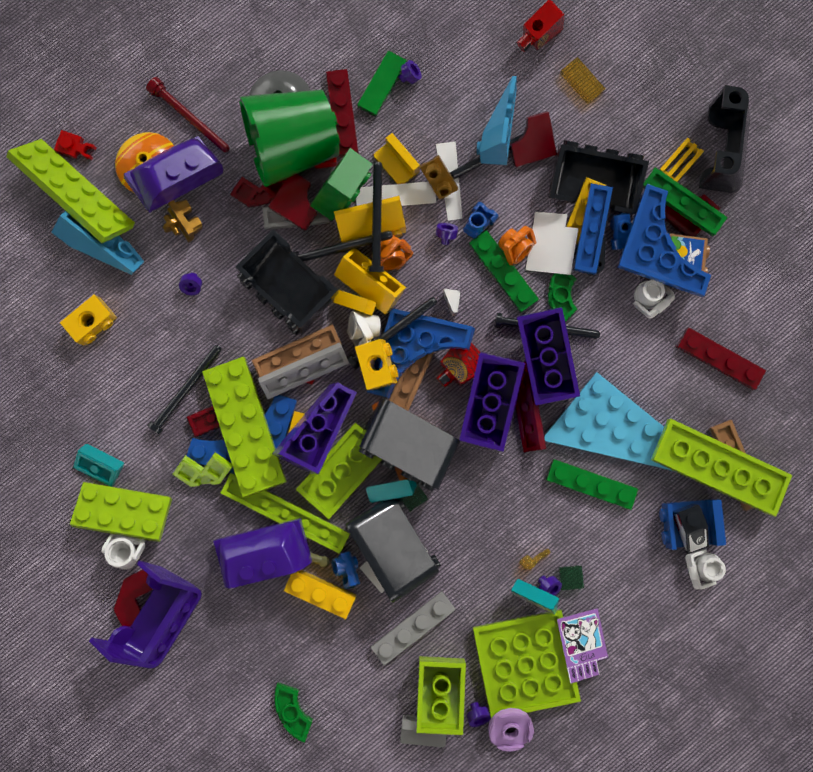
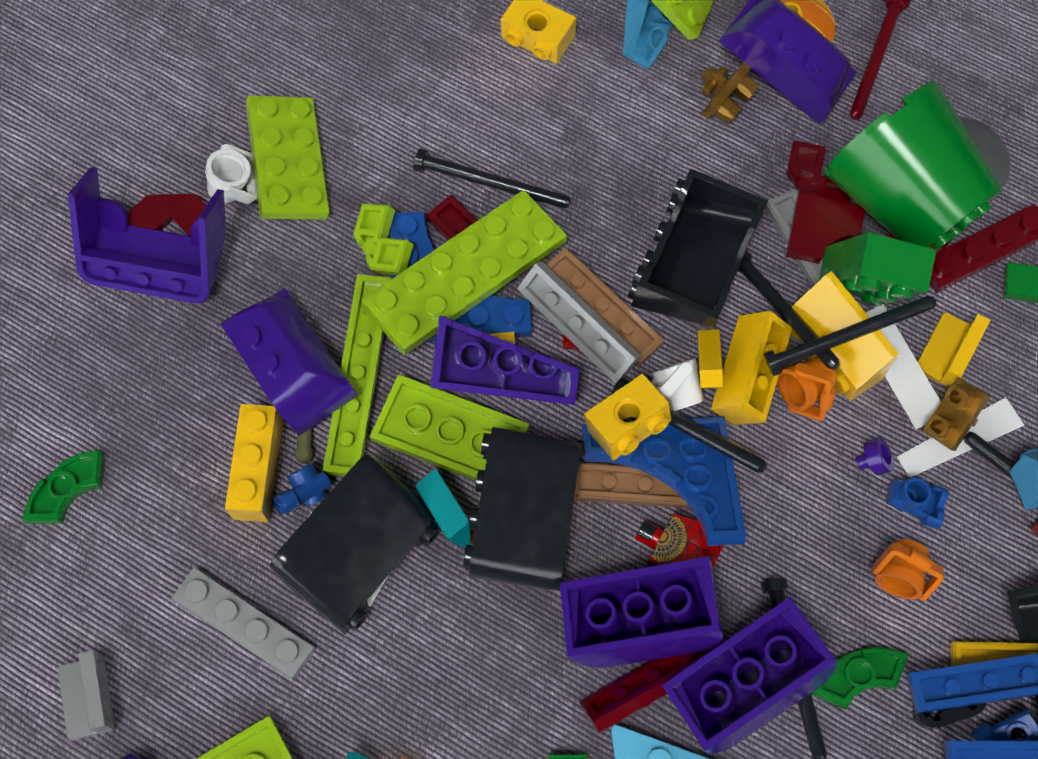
camera: 70 degrees right, 15 degrees down
(98, 464) = (343, 109): teal slope -> none
(190, 284) = (642, 133): dark purple tile -> none
(416, 499) = (444, 554): clear green tile -> none
(441, 695) = (147, 697): lime slope -> none
(452, 299) = (776, 503): white slope -> none
(504, 273) = (853, 569): green plate -> none
(554, 244) = (933, 630): white sticker -> none

